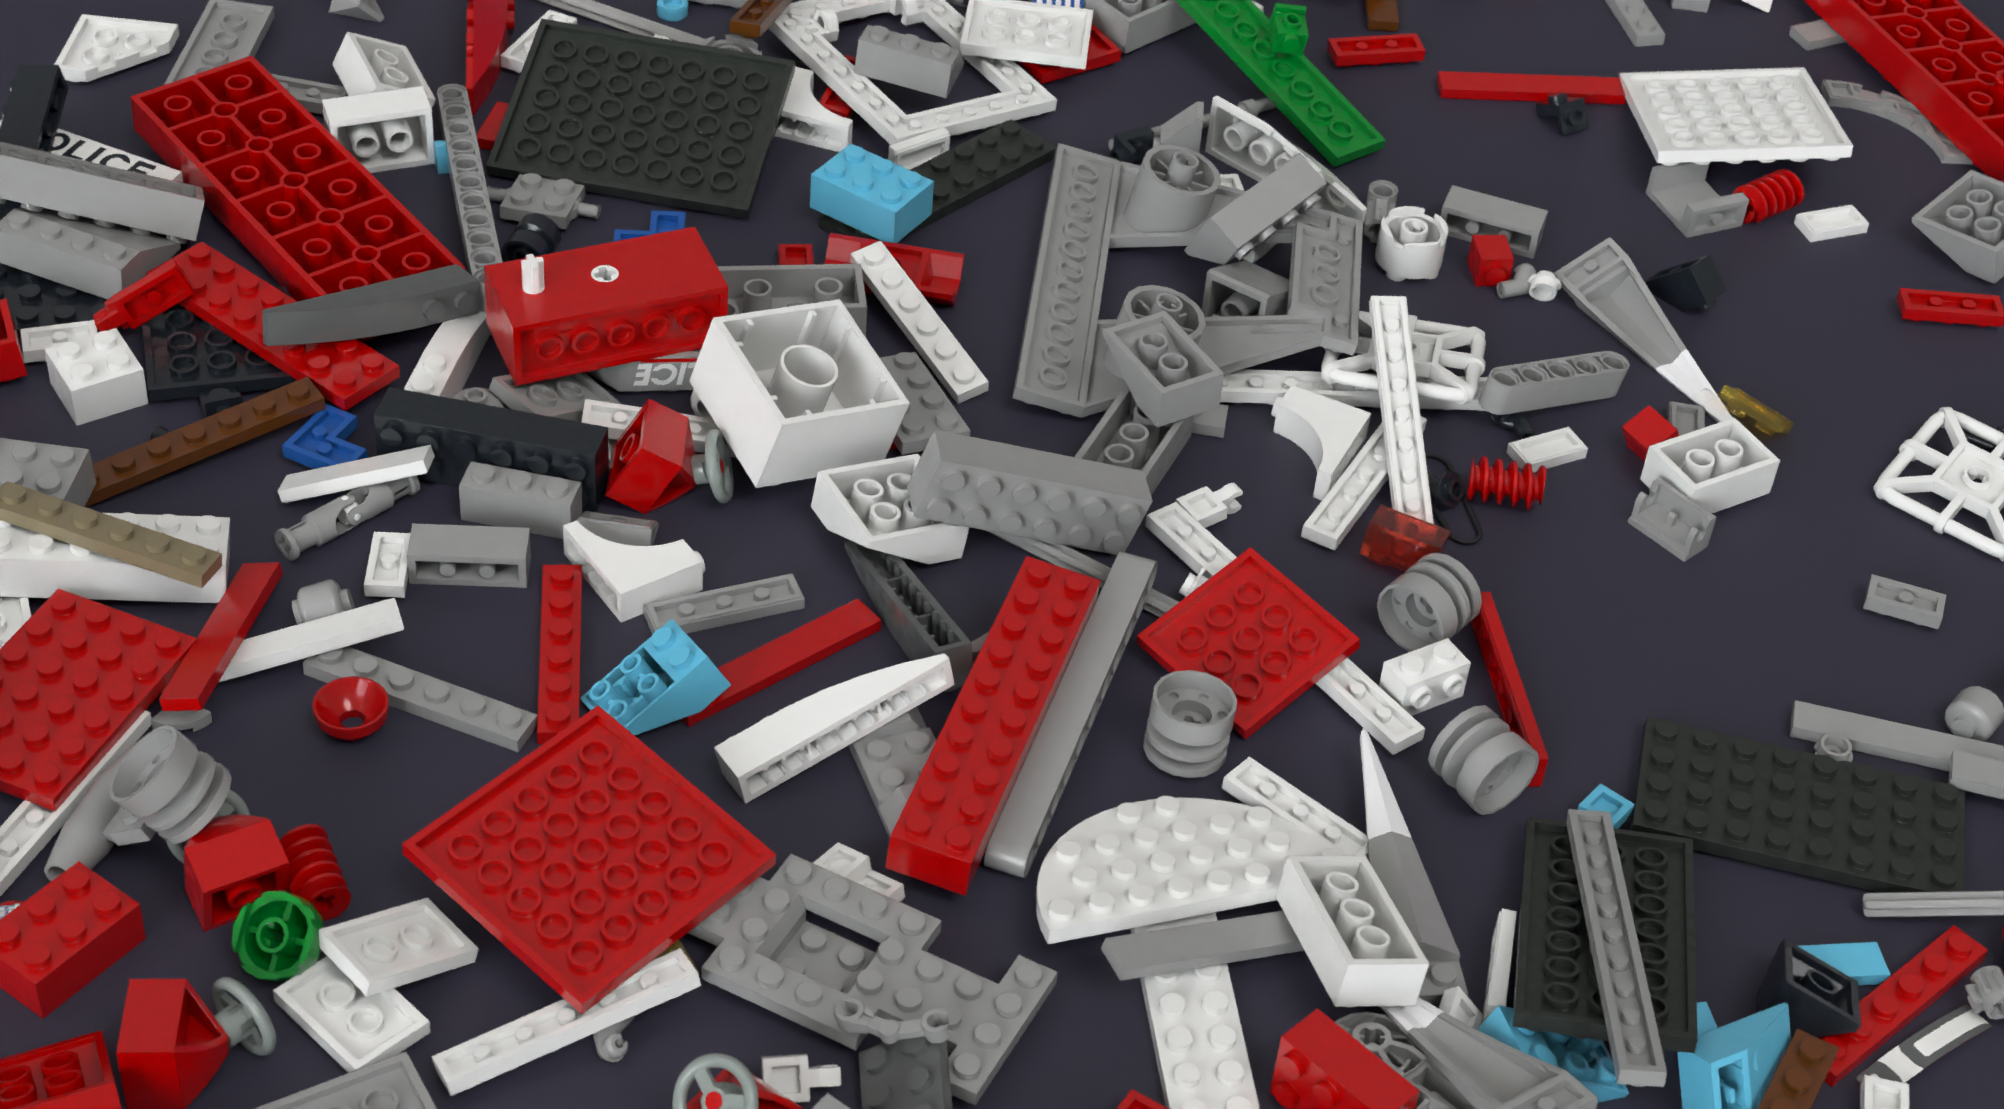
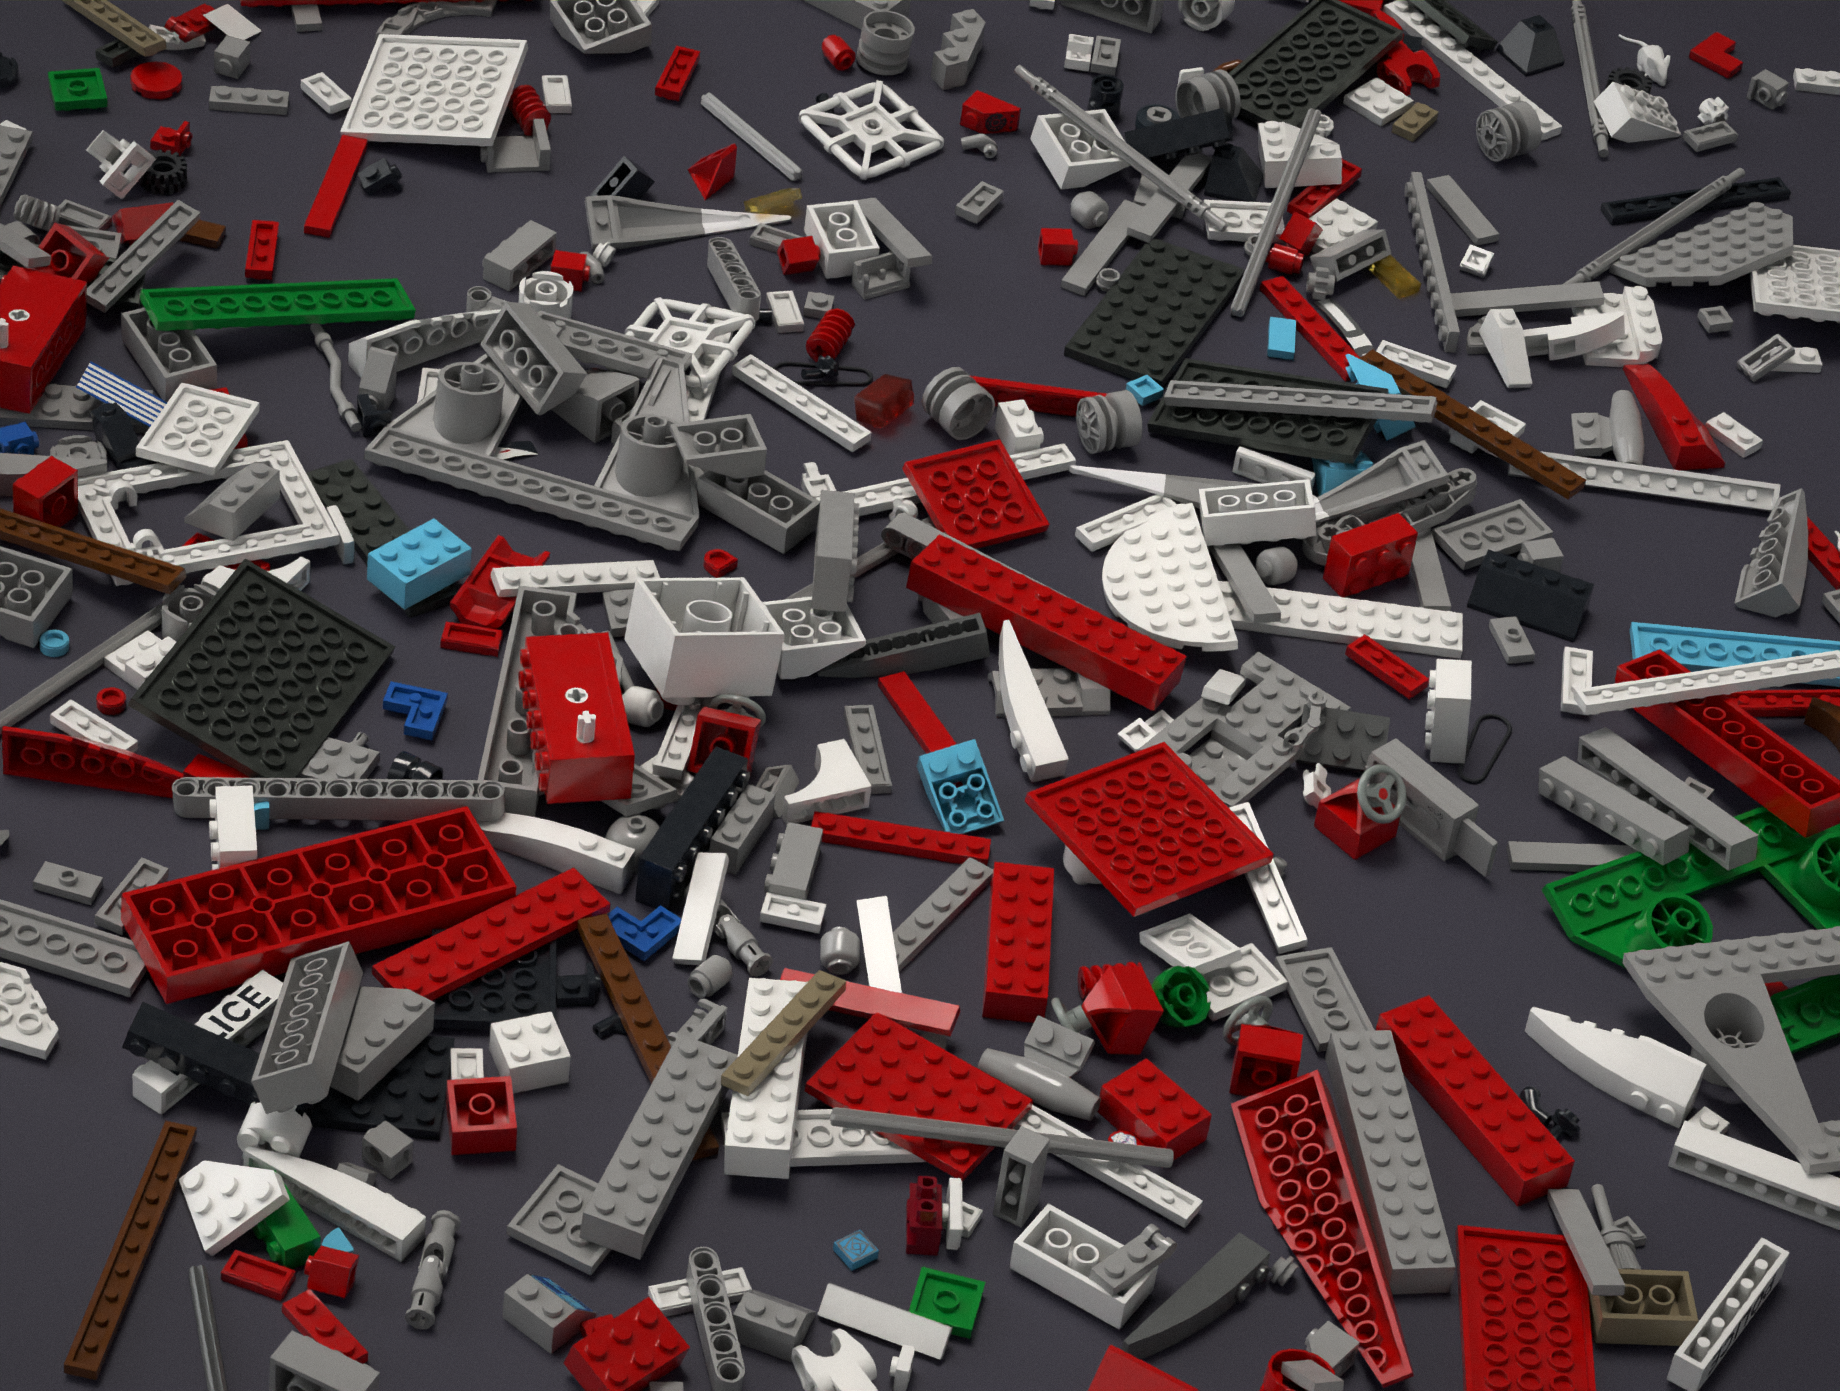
camera: 80 degrees left, 0 degrees up
(140, 501) = (703, 1025): none -> light grey hinge
(145, 298) = (453, 1009): red hinge -> none
(170, 784) = (1078, 983): light grey wheel -> none
(255, 504) = (710, 976): none -> light grey brick
(313, 58) = (68, 883): none -> light grey plate
(347, 699) = (956, 939): red piece -> none
(368, 769) = (1018, 942): none -> red brick
(375, 308) = (517, 851): dark grey slope -> none
(376, 66) = (159, 827): white brick -> none
(959, 936) = (1223, 687): none -> white tile
(1024, 437) = (719, 562): none -> red tile
(1146, 264) = (515, 449): none -> sticker
(1189, 723) = (1052, 541): light grey wheel -> none
(1280, 989) = (1276, 565): none -> light grey head
(1288, 29) = (275, 276): green brick -> none
(1324, 430) = (766, 405): white arch -> none
(1400, 407) = (761, 357): white tile -> none
(1579, 478) = (818, 304): none -> light grey plate
(1684, 56) = (326, 93): none -> white plate
(1749, 508) = (894, 234): none -> light grey tile
(1775, 358) = (714, 170): none -> red slope
(1818, 995) = (1315, 355): black slope -> none
(1861, 684) = (1056, 246): none -> red brick
(1877, 385) = (751, 137): none -> light grey axle

